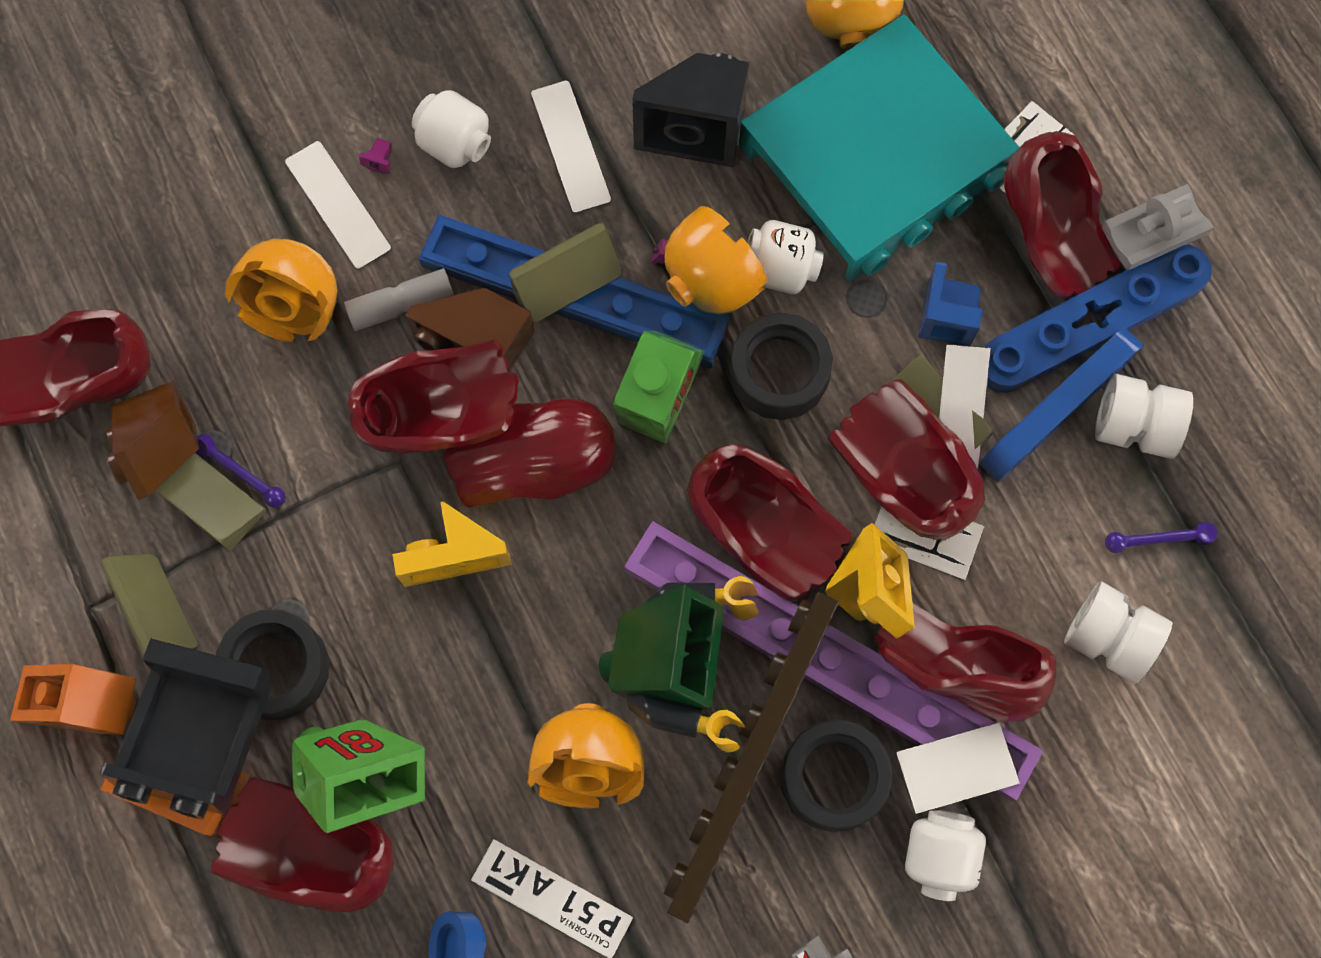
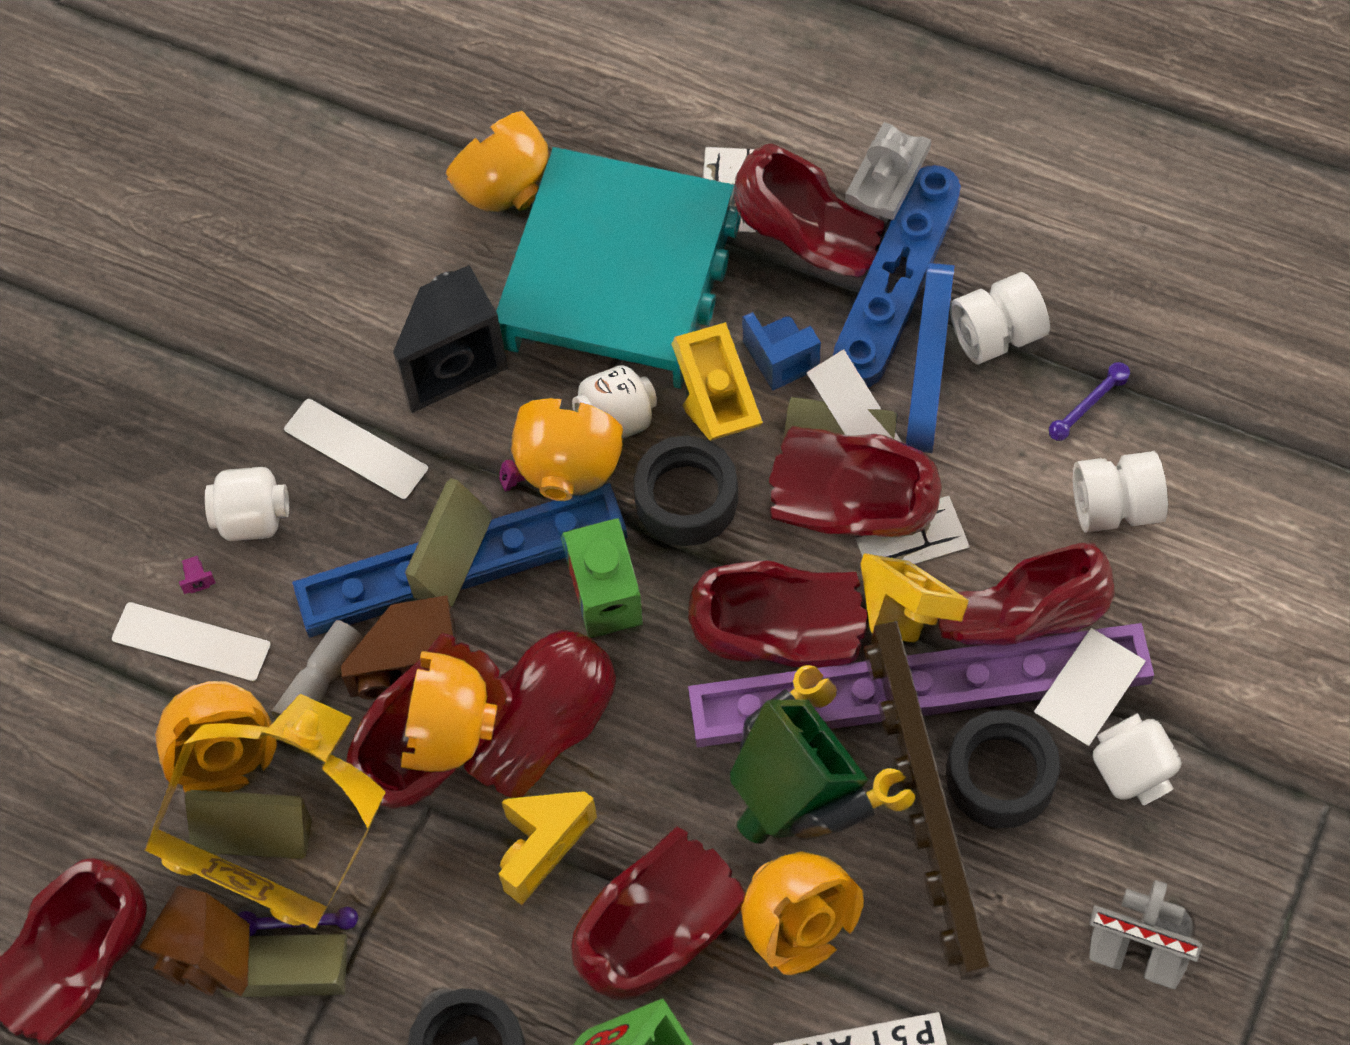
camera: 35 degrees left, 10 degrees down
(261, 374) = (248, 823): none -> olive slope
(334, 343) = (310, 728): none -> yellow piece
(442, 404) = (446, 714): none -> light orange cylinder
(480, 678) = (655, 918): none -> dark red hair
(870, 299) = (716, 383): none -> yellow slope

